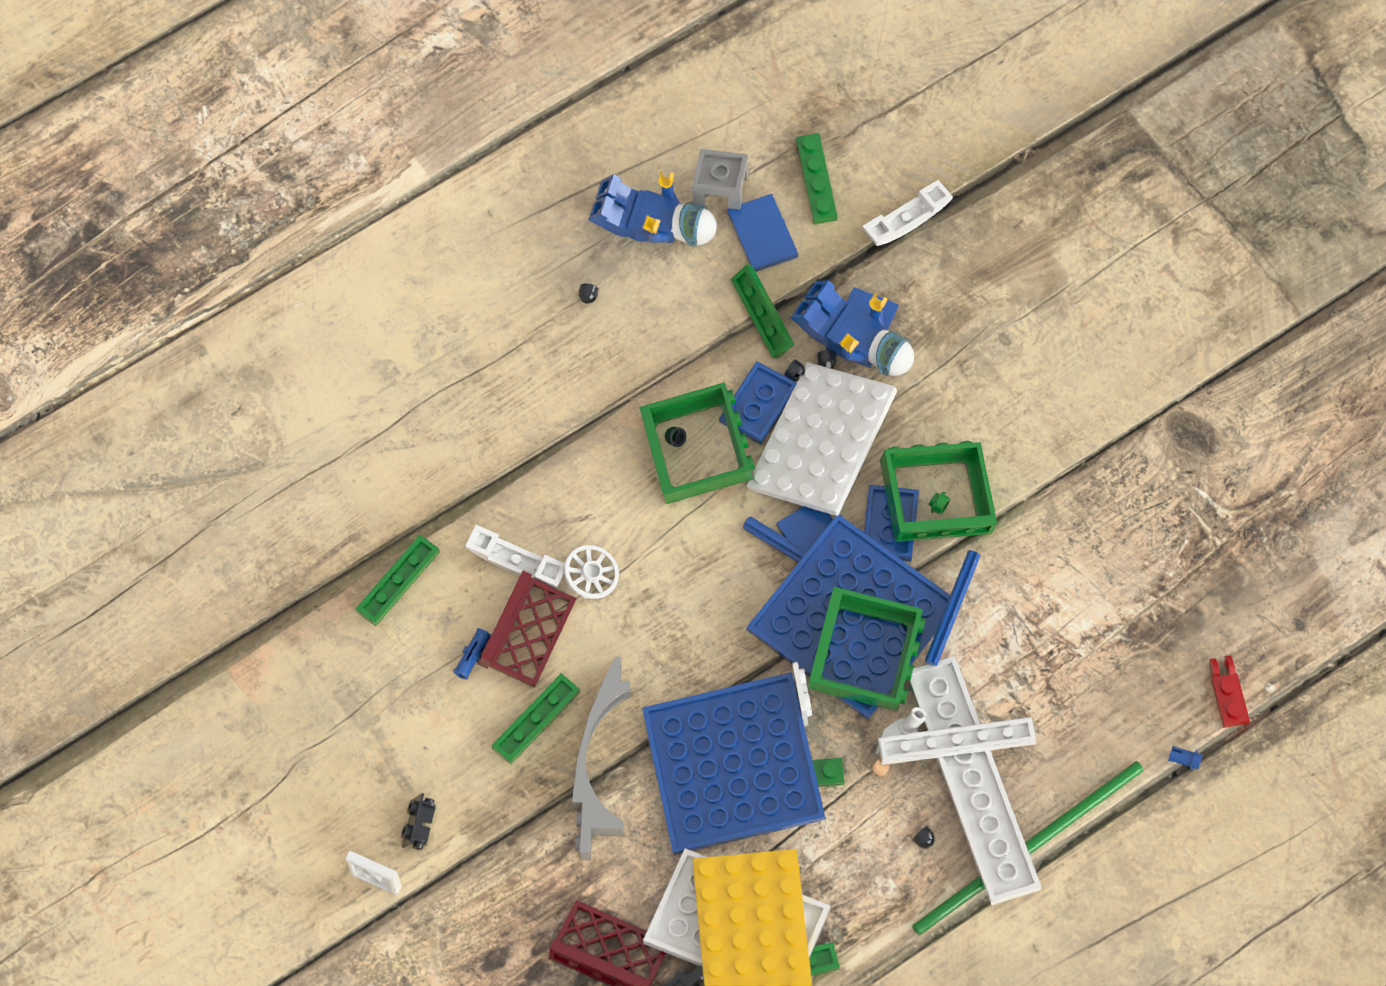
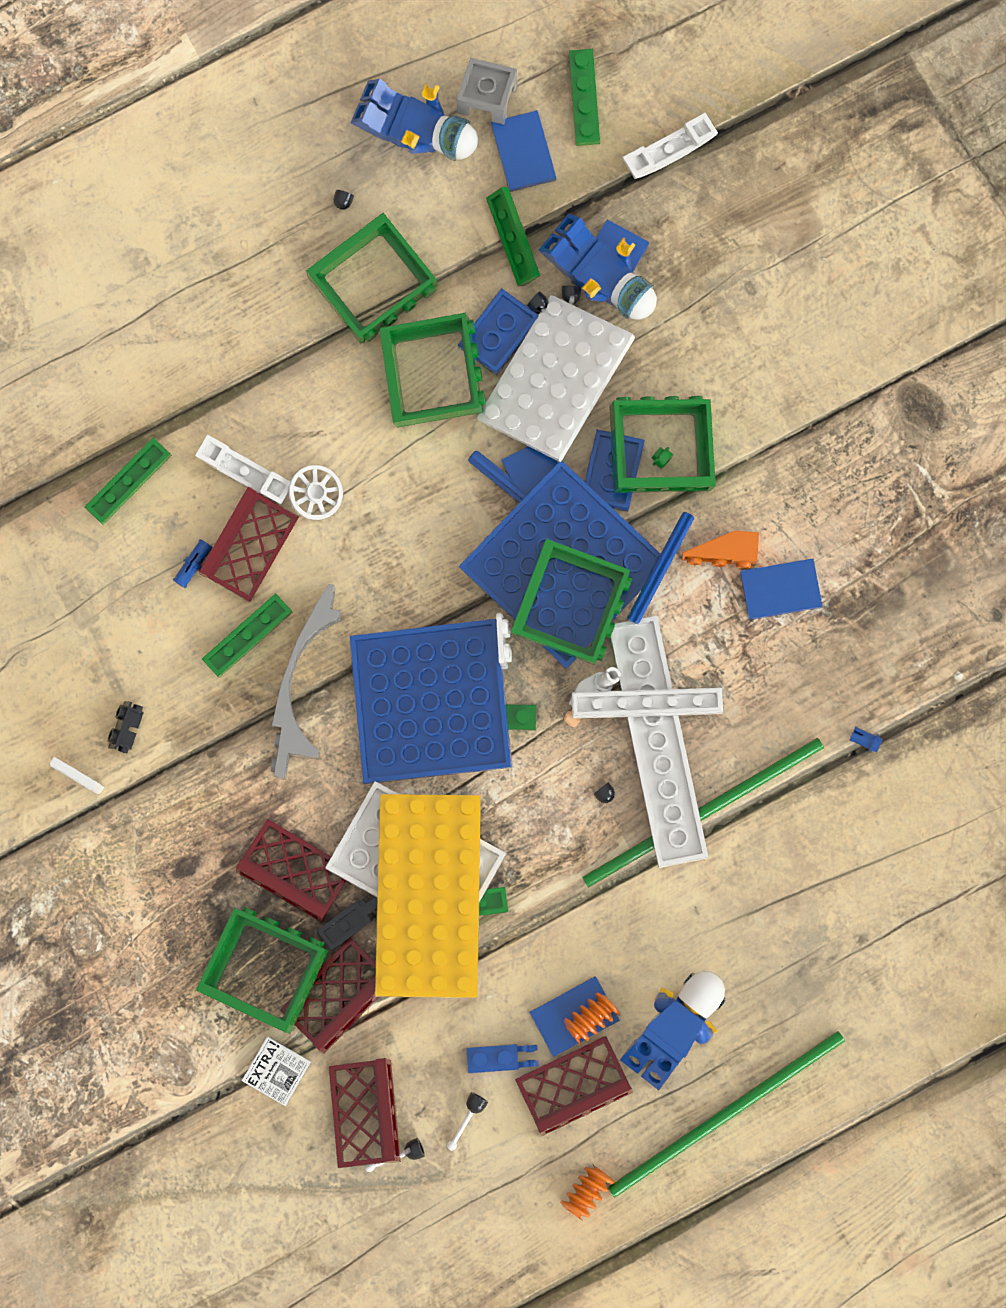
camera: 10 degrees right, 15 degrees up
(634, 316) = (378, 227): none -> green piece
(675, 436) = (412, 361): black hinge -> none
(1021, 584) = (731, 548): none -> orange slope
(1077, 620) = (781, 589): none -> blue tile
(1228, 694) = (917, 679): red hinge -> none

